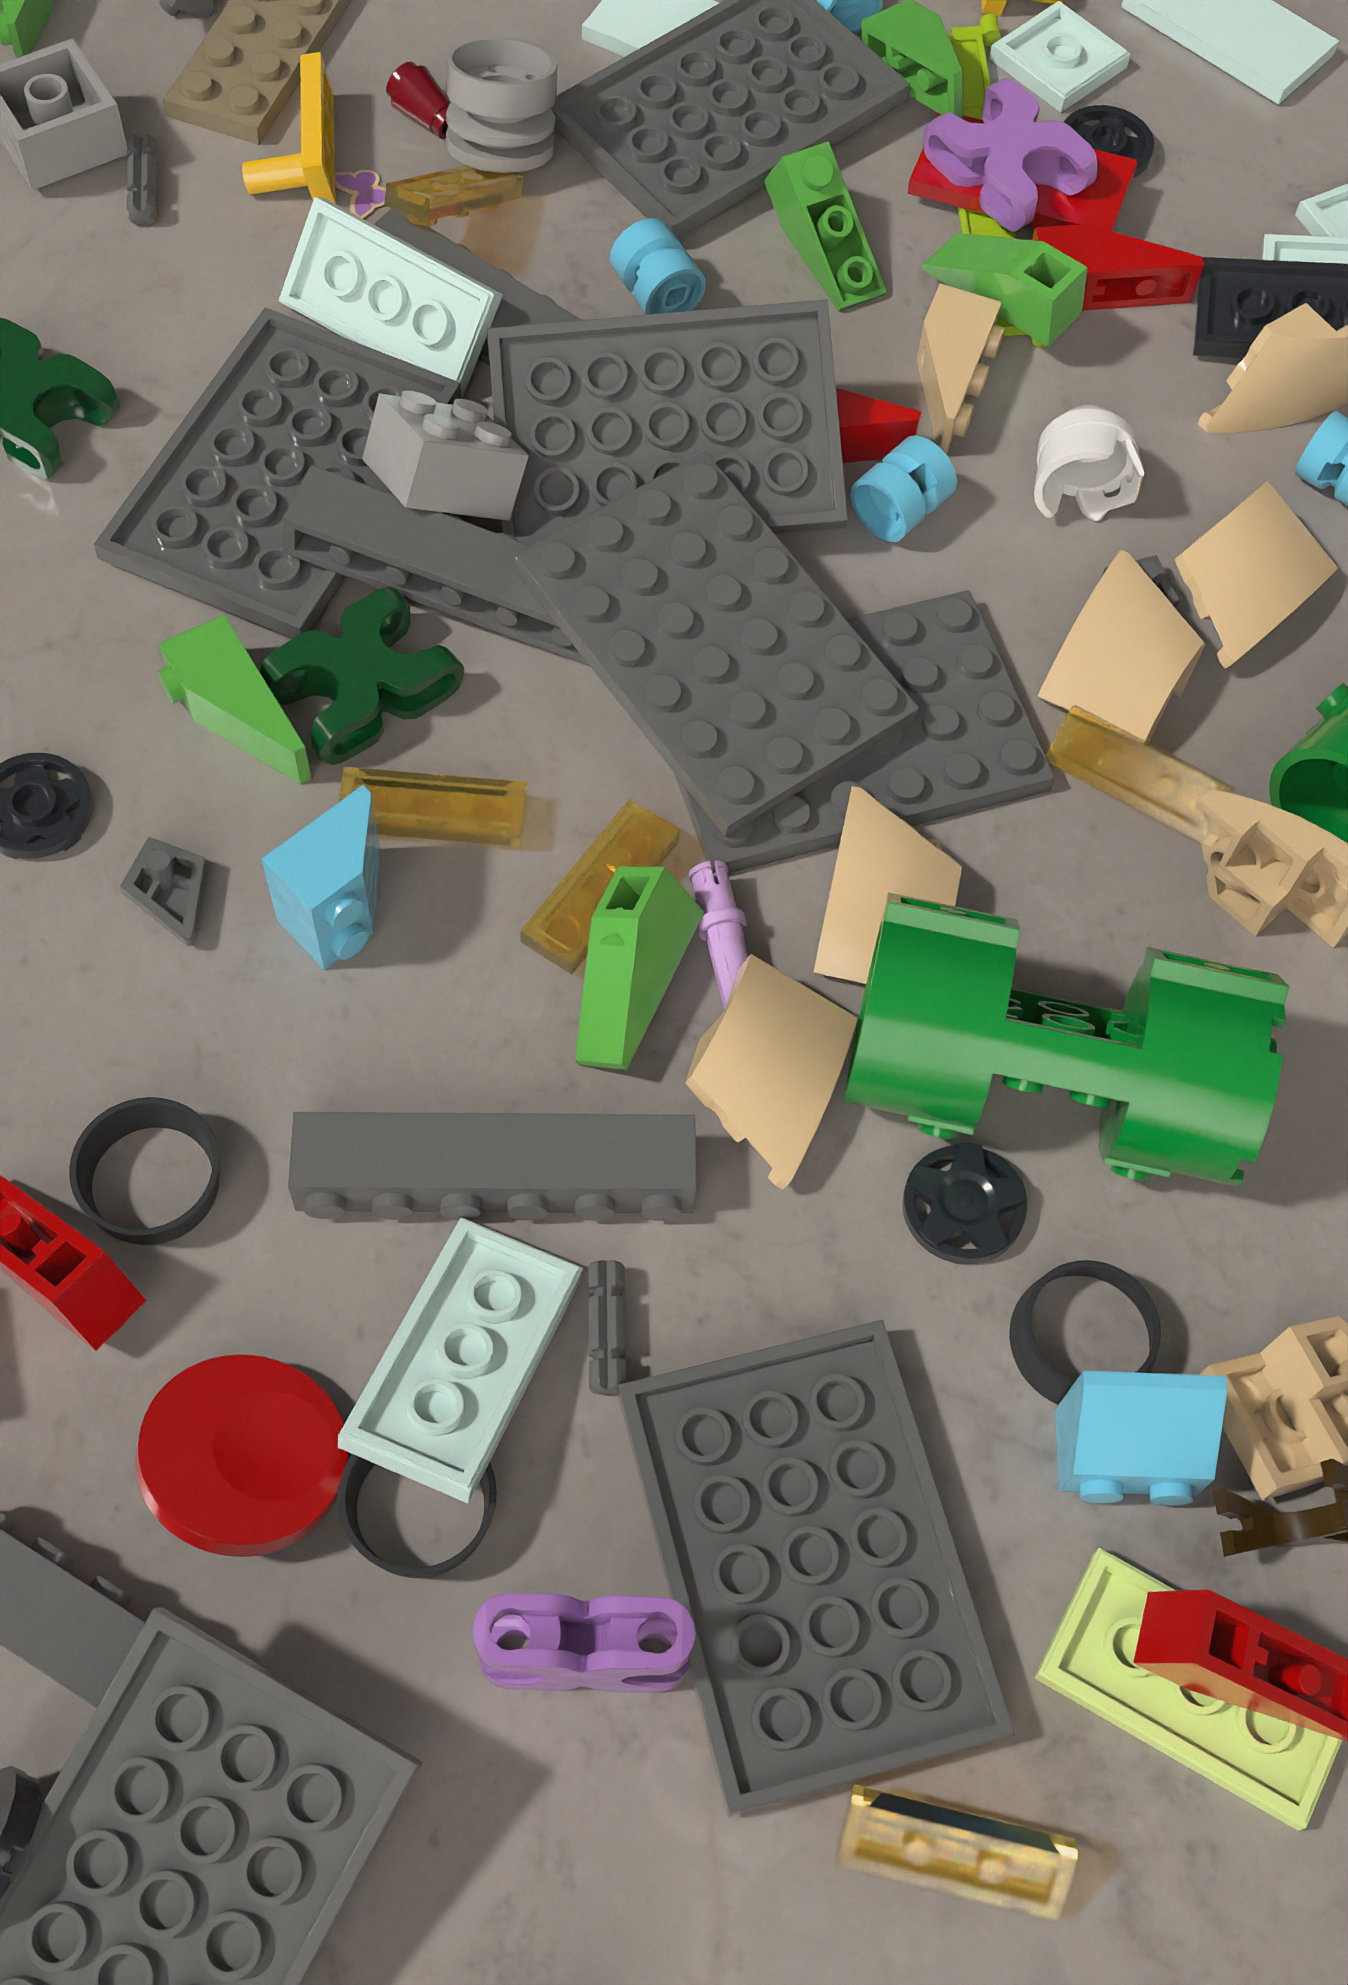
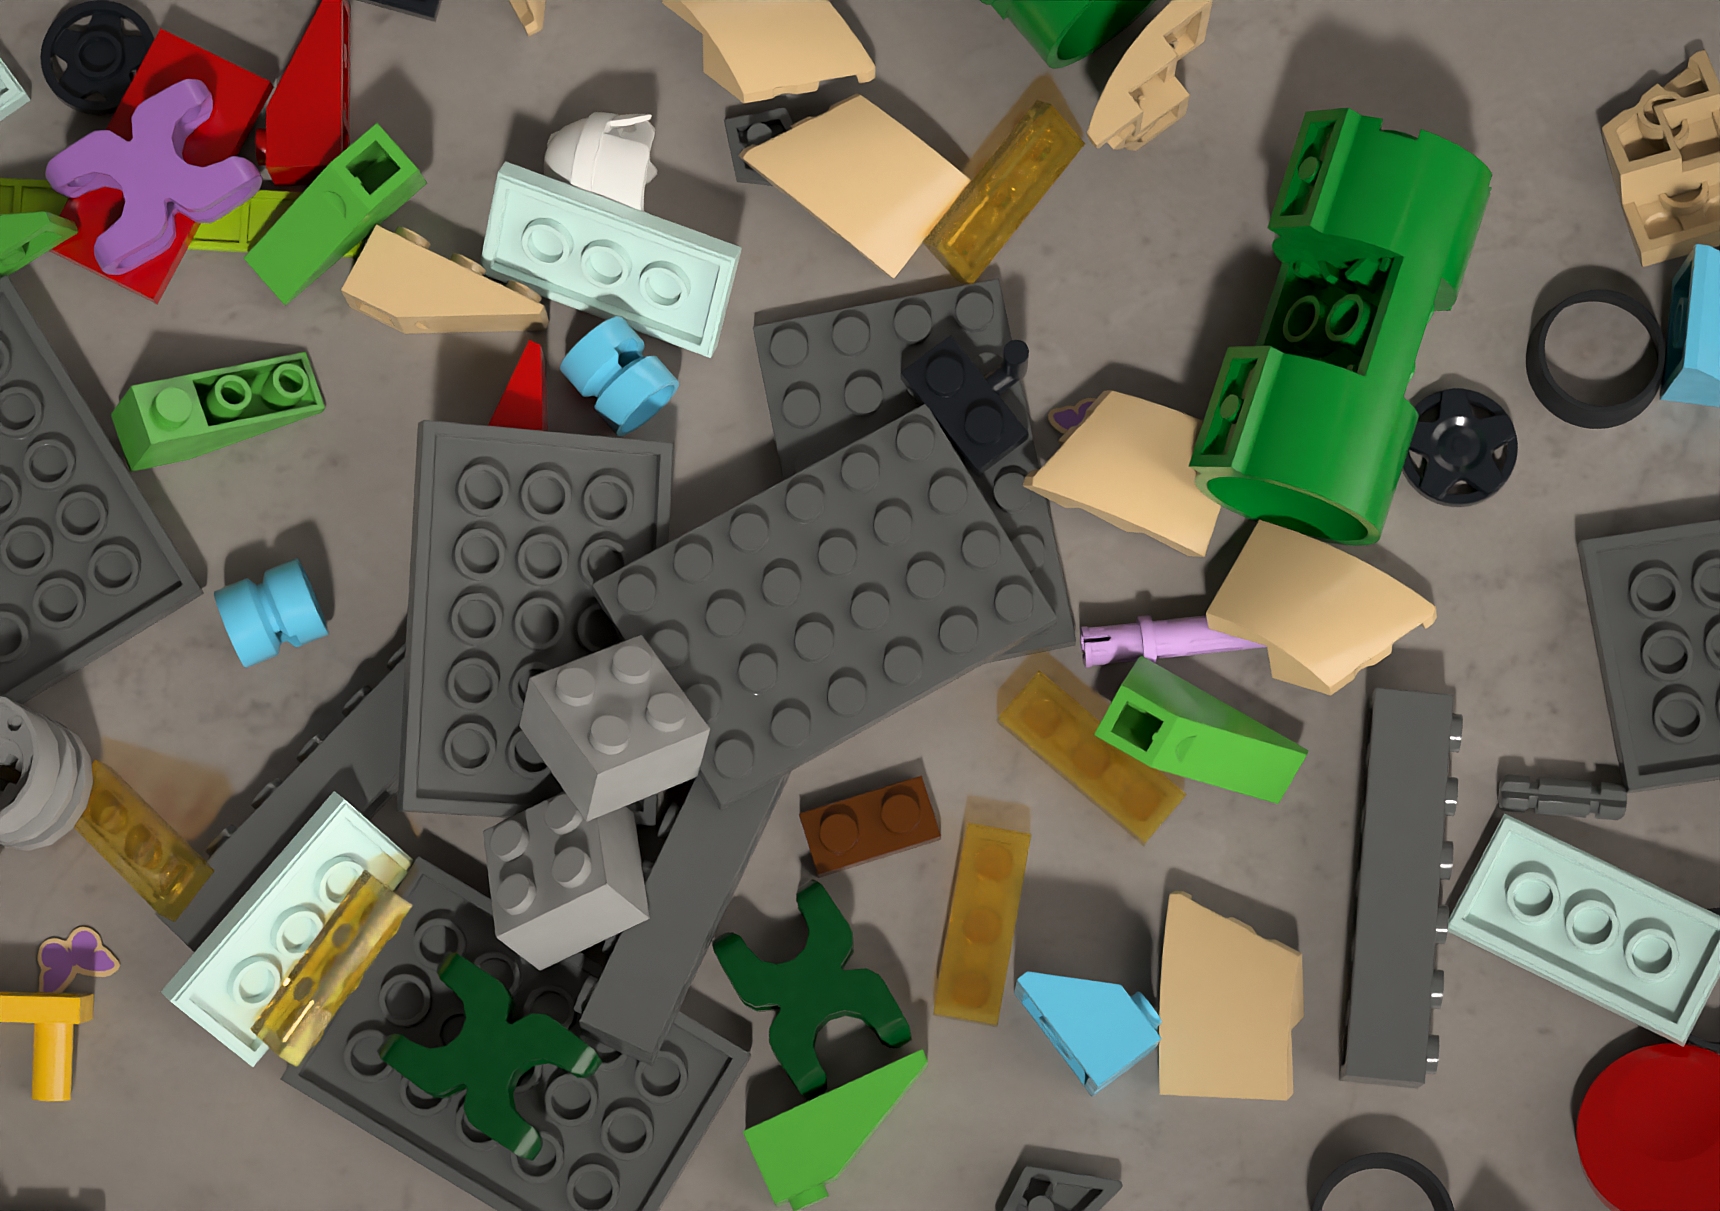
camera: 75 degrees left, 15 degrees up
(282, 425) = (489, 1056): none -> dark green piece
(355, 322) = (331, 968): none -> clear yellow plate
(366, 1009) = (1225, 1007): none -> tan slope
(519, 718) = (870, 826): none -> reddish brown plate
(571, 456) = (614, 727): none -> light grey brick
(930, 746) = (970, 403): none -> black plate
(1006, 467) = (609, 259): none -> light aqua tile

